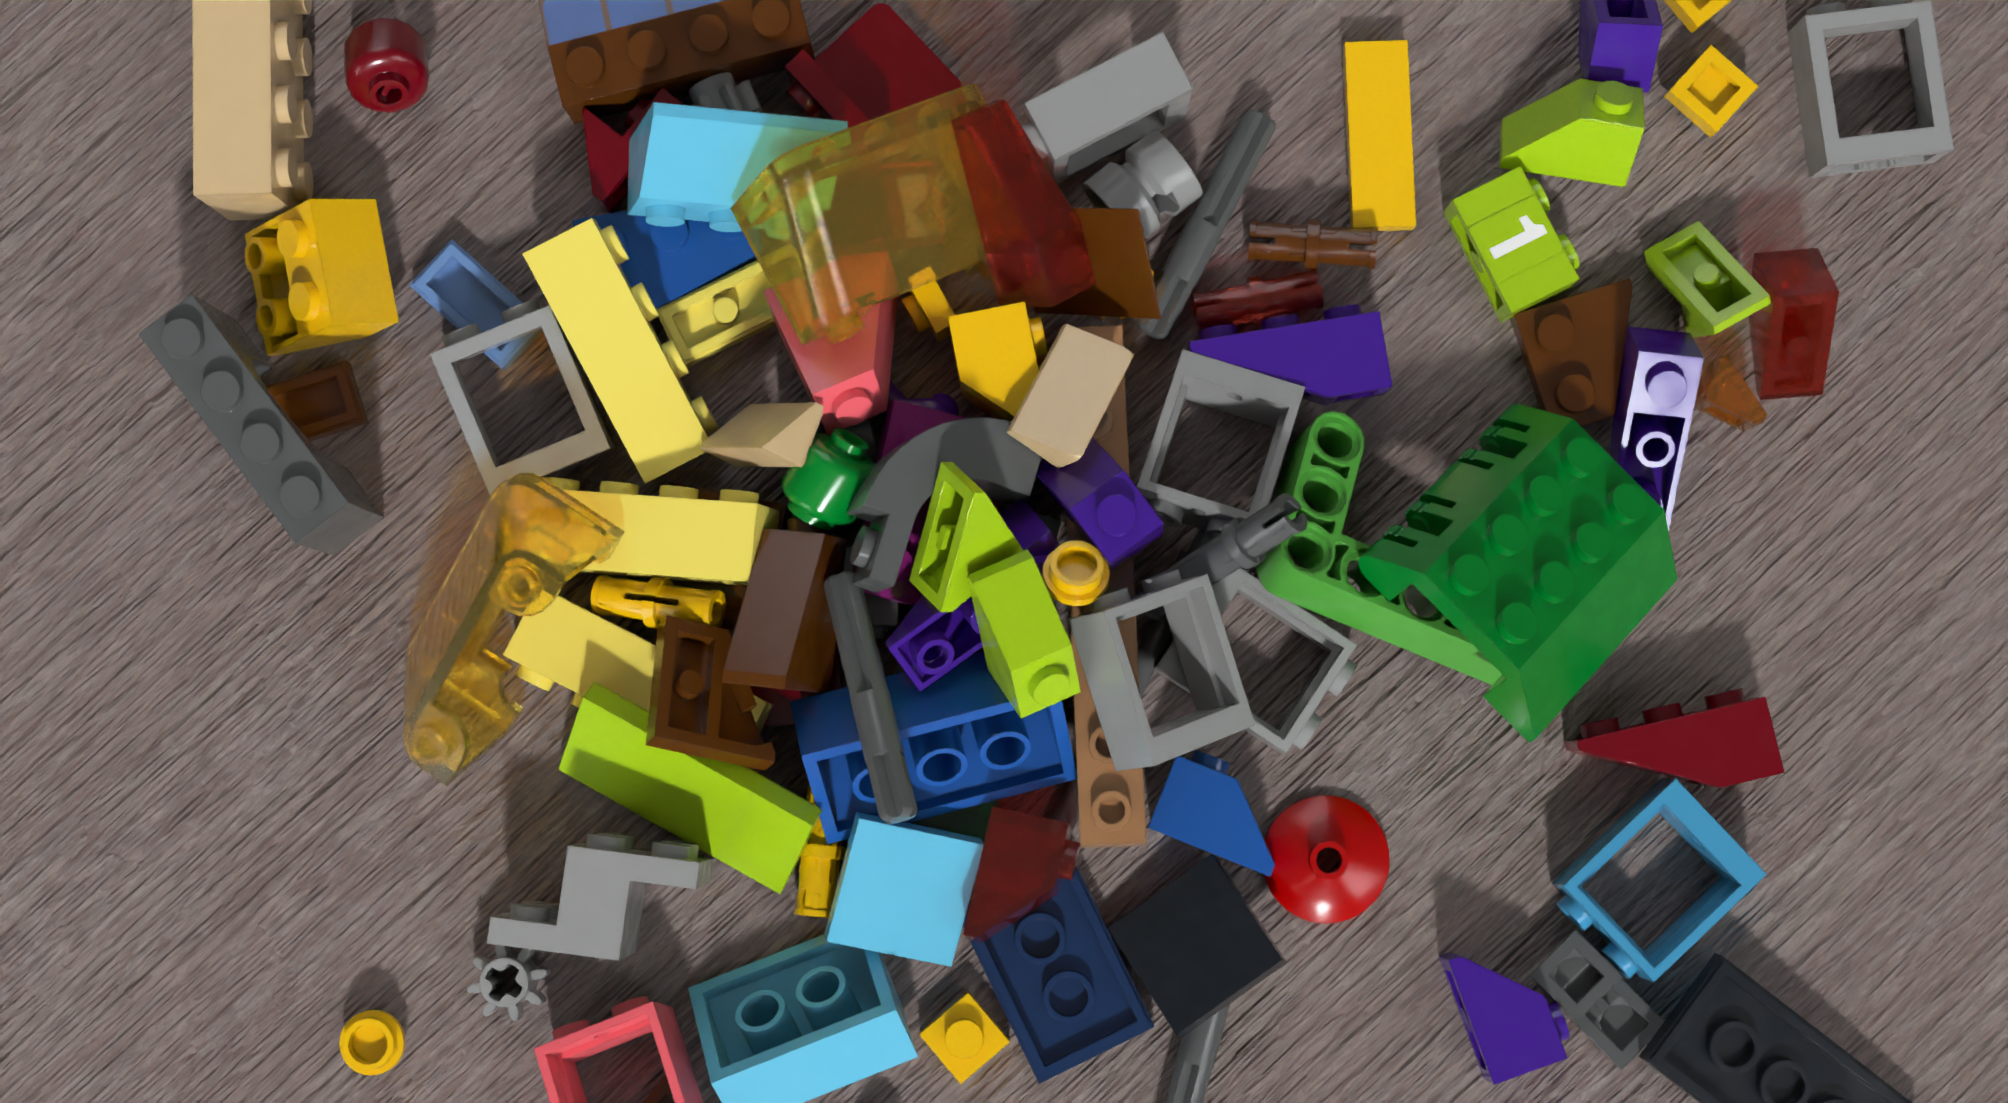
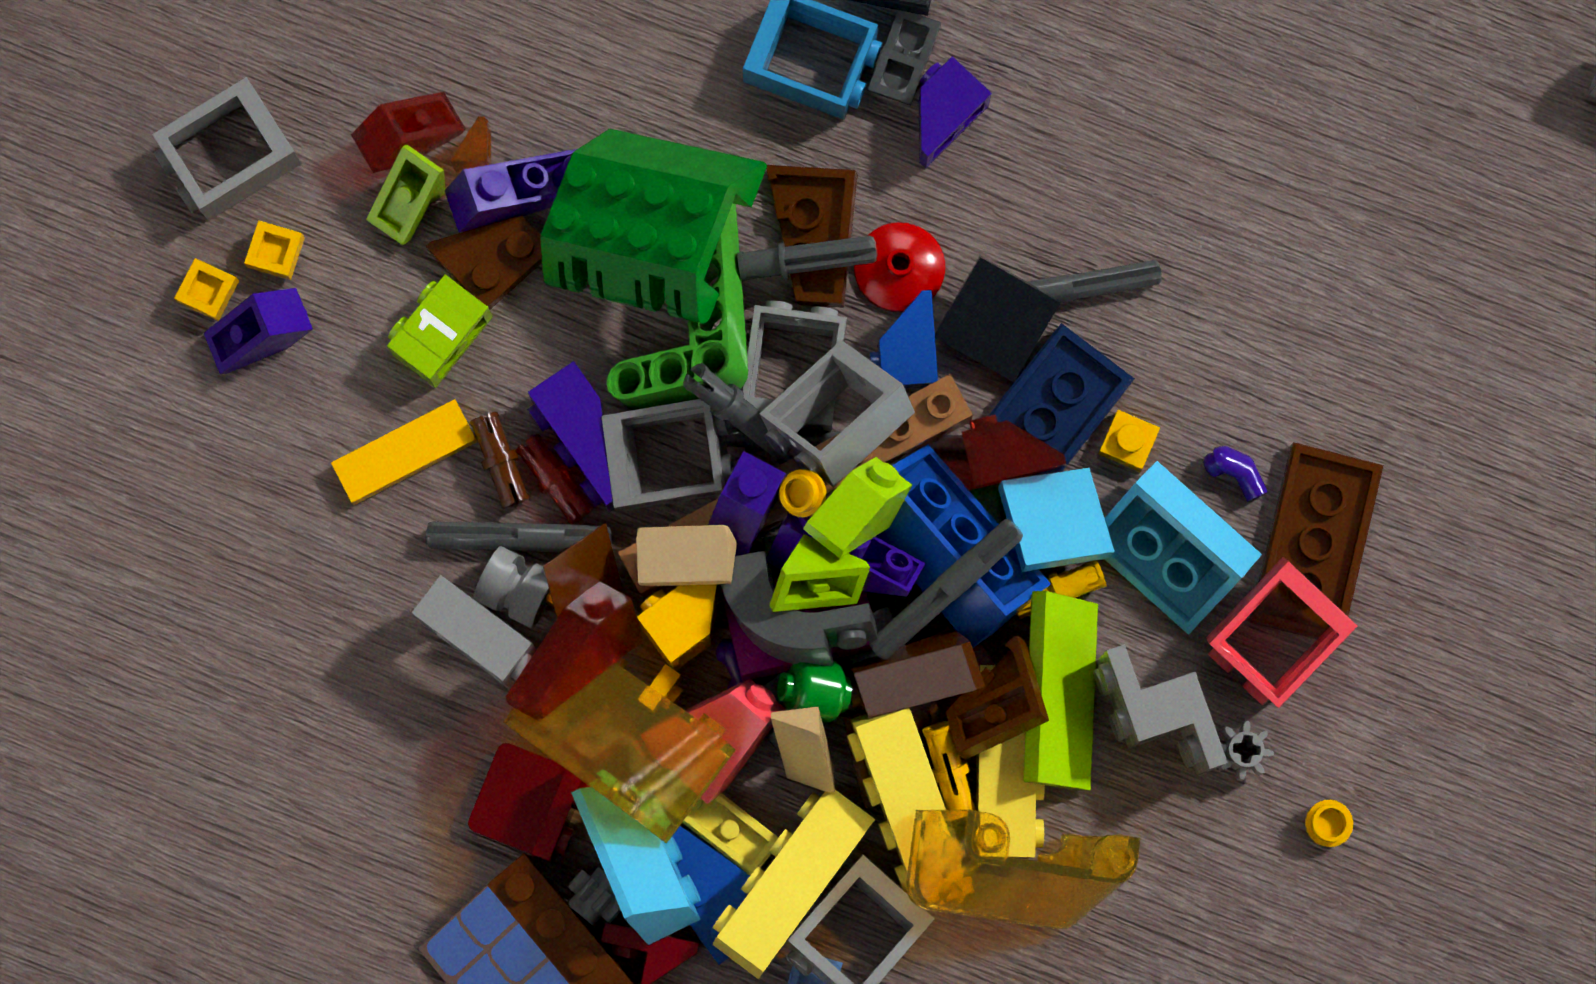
camera: 120 degrees left, 5 degrees down
(1388, 740) = (806, 257): none -> dark grey axle
(1423, 776) = (815, 208): none -> reddish brown wing
(1577, 133) = (345, 322): lime slope -> none
(1705, 747) = (709, 60): dark red slope -> none

